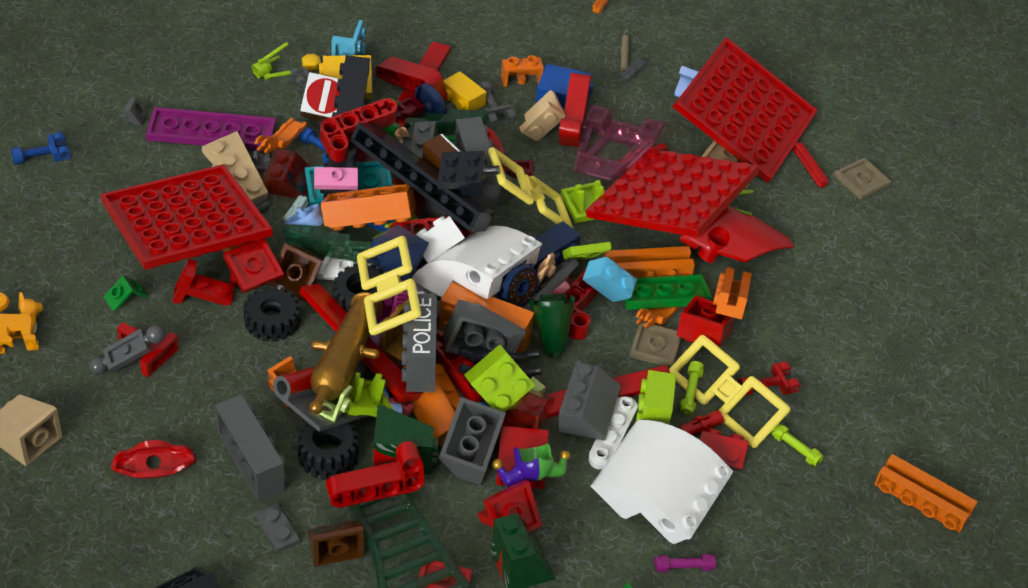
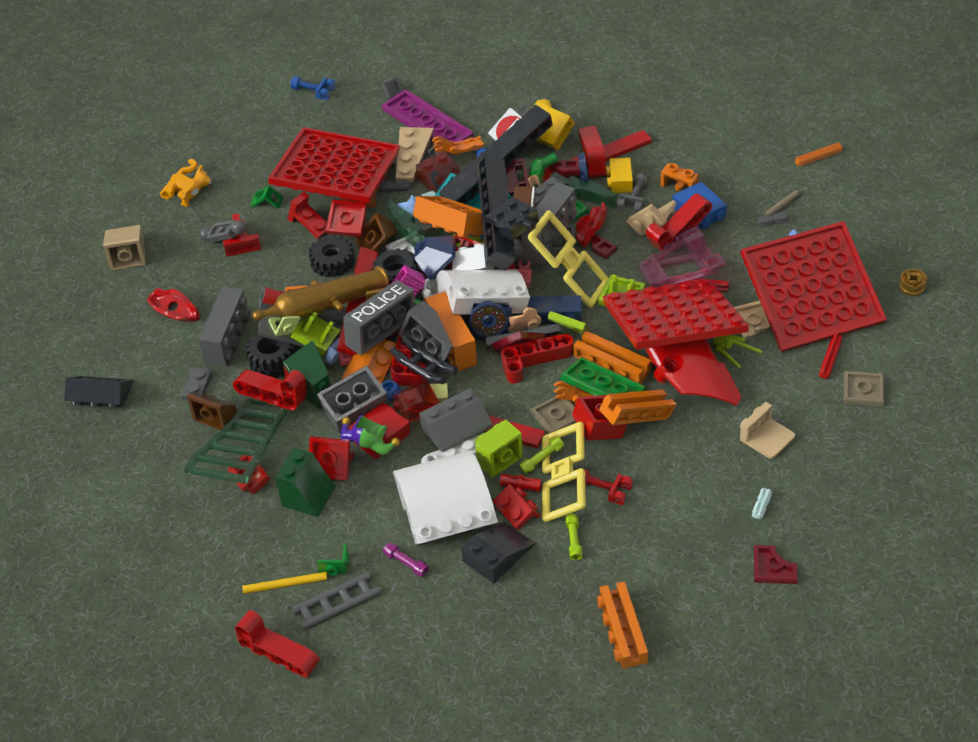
camera: 50 degrees right, 0 degrees up
(263, 66) = (504, 95): lime plant -> none
(336, 178) = (451, 187): bright pink plate -> none
(350, 46) = (576, 106): medium azure bracket -> none
(381, 113) = (514, 155): red beam -> none
(388, 285) = (393, 268): light yellow bar -> none
(499, 379) = (404, 369): lime brick -> none
(553, 321) = (489, 354): dark green cone -> none
(609, 279) = (560, 349): medium azure brick -> none
(754, 502) = (495, 550): none -> black slope
(801, 68) = (913, 282): none -> pearl gold wheel
(840, 259) = (764, 433): none -> tan bracket
(902, 321) = (760, 506): none -> light aqua piece
(966, 369) = (771, 567): none -> dark red tile

